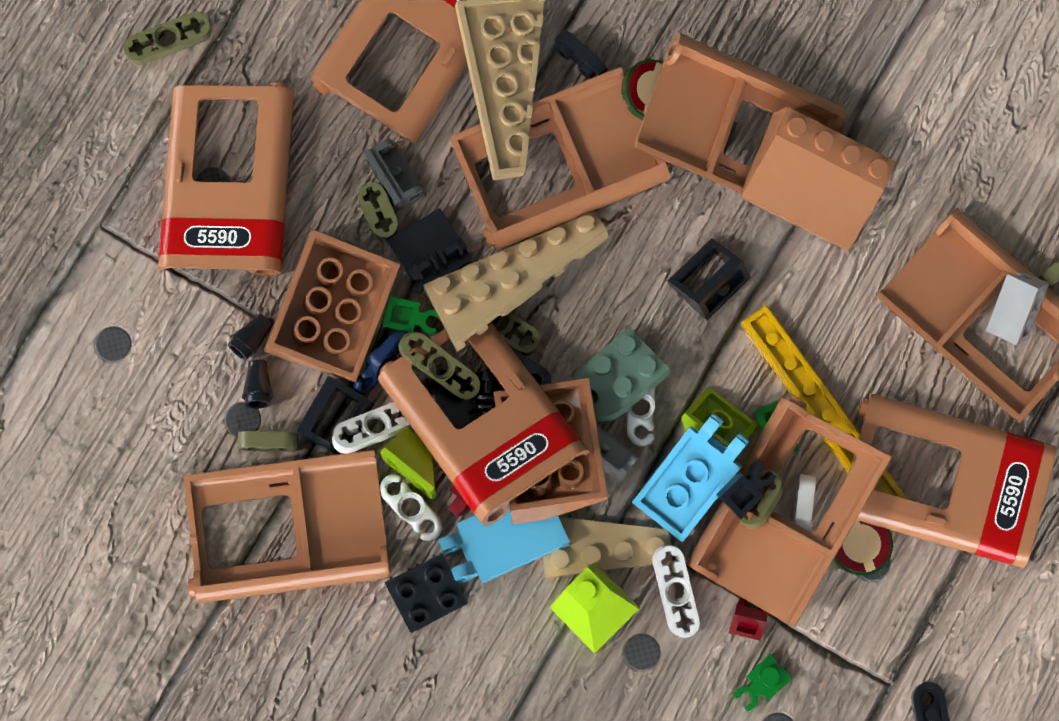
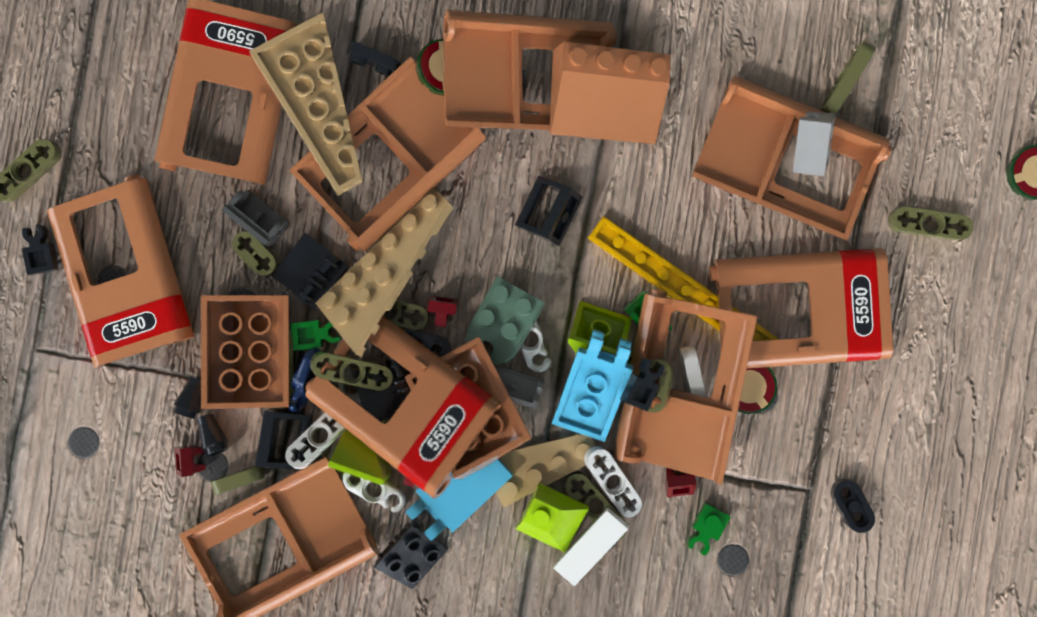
camera: 15 degrees left, 10 degrees up
(149, 130) = (39, 256): none -> black plate
(218, 401) = (184, 460): none -> dark red tile
(558, 340) = (443, 307): none -> dark red tile
(626, 653) = (591, 546): none -> white tile
(662, 632) = (587, 485): none -> olive beam

